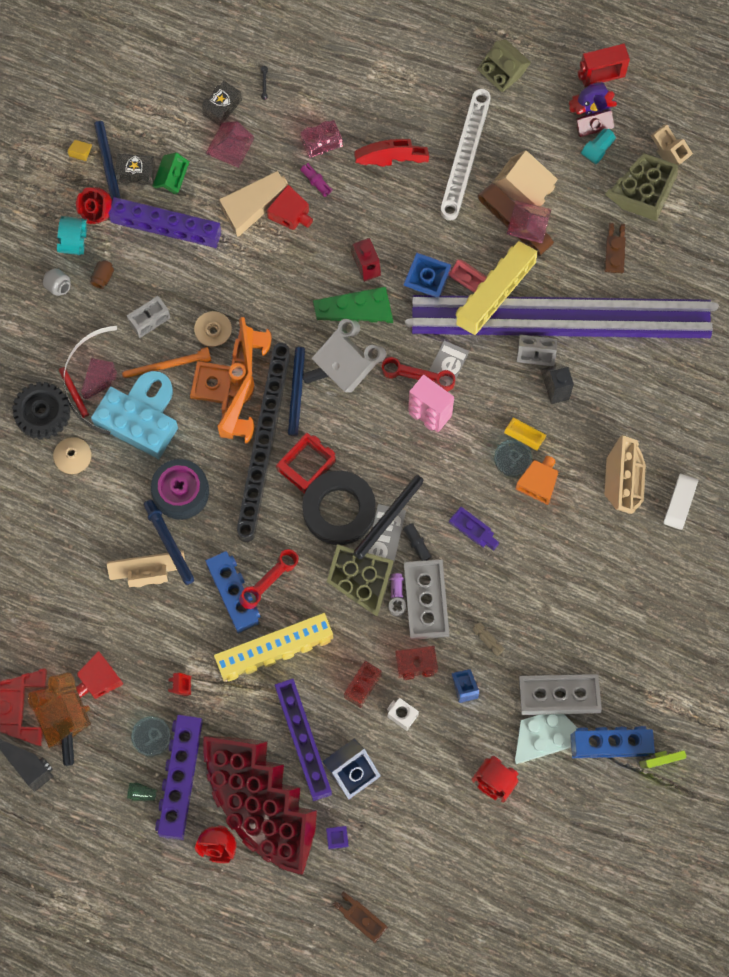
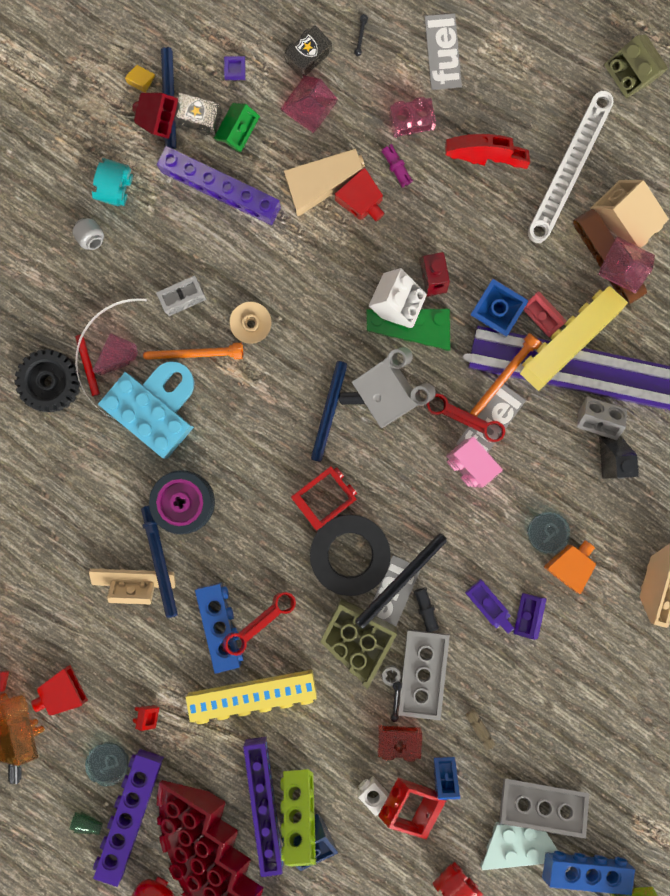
camera: 10 degrees right, 15 degrees up
(75, 463) = (84, 439): tan dish -> none
(94, 205) = (142, 150): red cylinder -> none
(99, 172) = (155, 113): none -> dark red torso
(102, 274) = (139, 234): reddish brown brick -> none
(160, 127) = (234, 68): none -> dark purple plate
(234, 382) = (262, 390): orange piece -> none
(264, 450) = (282, 452): black beam -> none
(337, 83) = (443, 51): none -> sticker
(337, 738) = (305, 852): none -> lime brick
(338, 284) = (398, 298): none -> white slope
(362, 684) = (337, 758): clear red brick -> none
(396, 585) = (395, 653): medium lavender pin -> none
(404, 611) = (397, 686): none -> black hinge
(454, 719) = (421, 824): none -> red window
(459, 298) = (530, 344): none -> orange piece
(512, 532) = (529, 616): none -> dark purple slope
(525, 433) = (567, 509): yellow tile -> none

